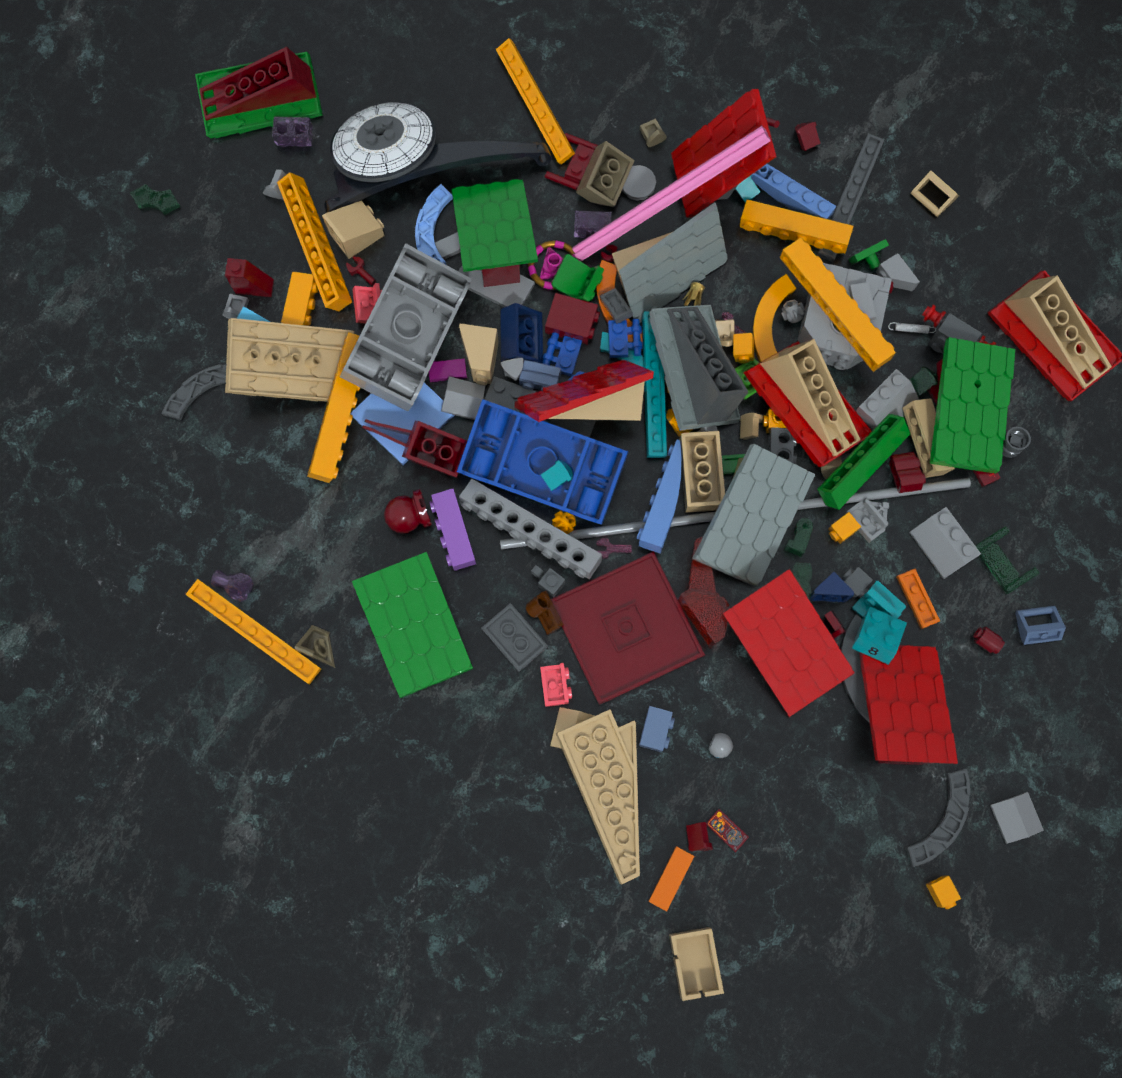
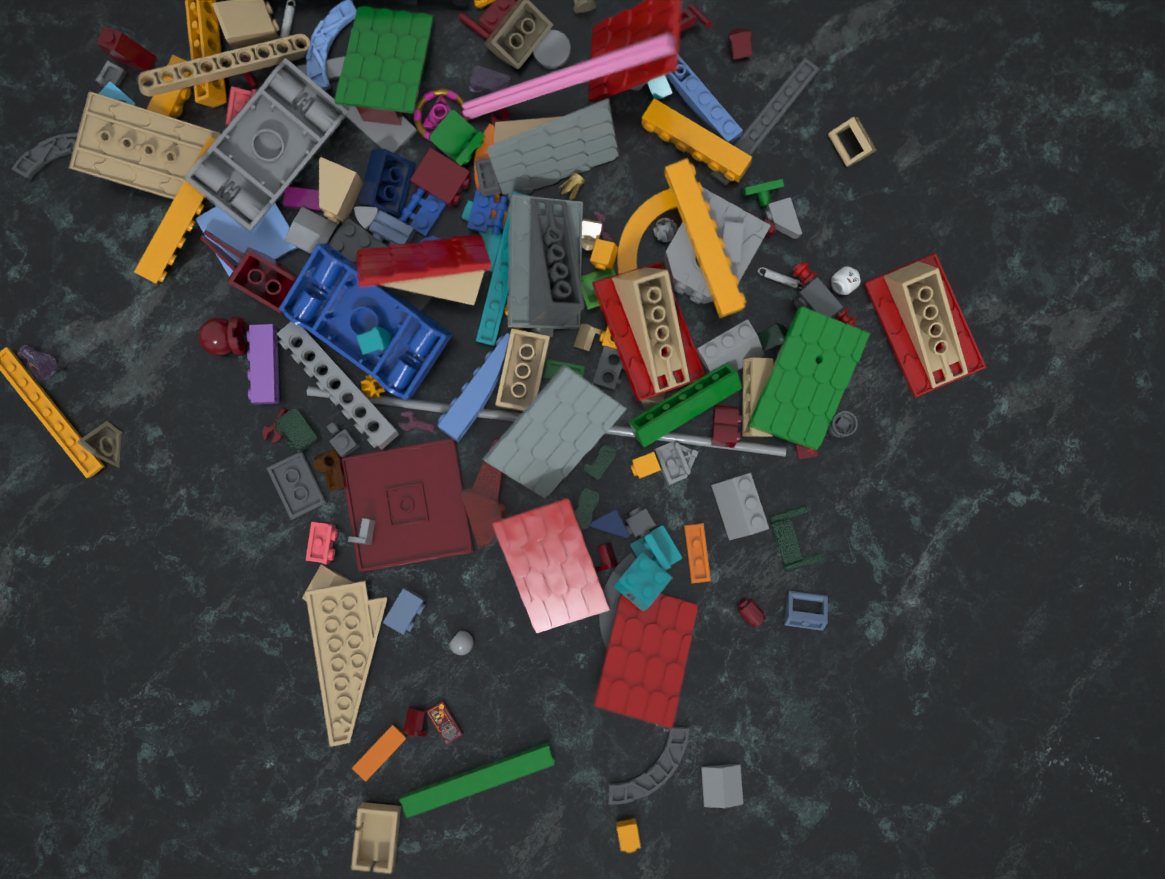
camera: 15 degrees right, 10 degrees up
(342, 271) = (217, 70): none -> tan beam
(388, 220) = (288, 17): none -> white piece
(412, 624) = (196, 449): green piece -> none
(479, 586) = (267, 430): none -> dark red bar
(500, 584) = (295, 430): none -> clear green brick
(597, 663) = (366, 532): none -> light grey tile
(777, 877) = (477, 780): none -> green tile
(972, 313) = (845, 280): none -> white head

